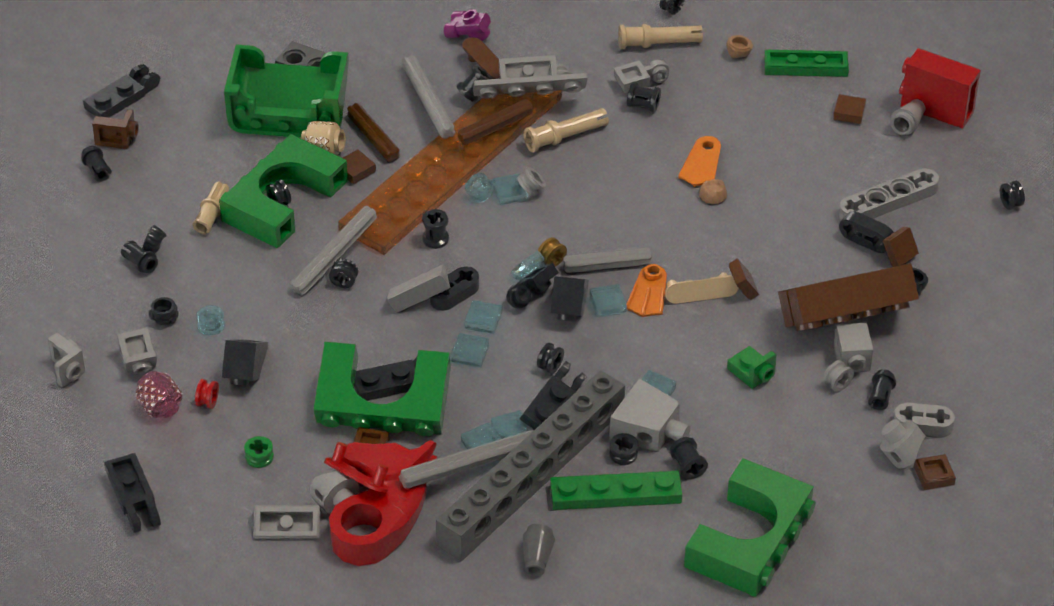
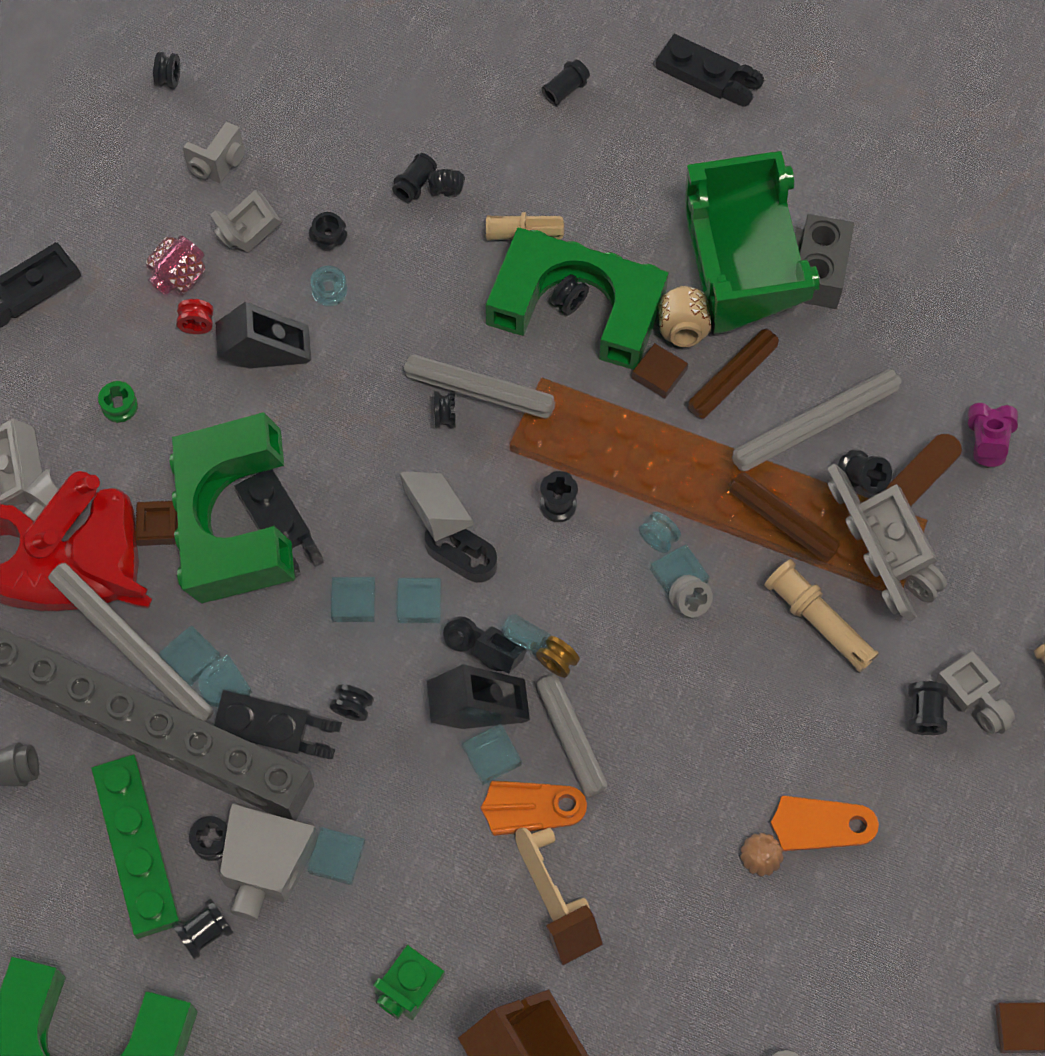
camera: 75 degrees right, 20 degrees up
(115, 132) = (627, 89): reddish brown bracket -> none

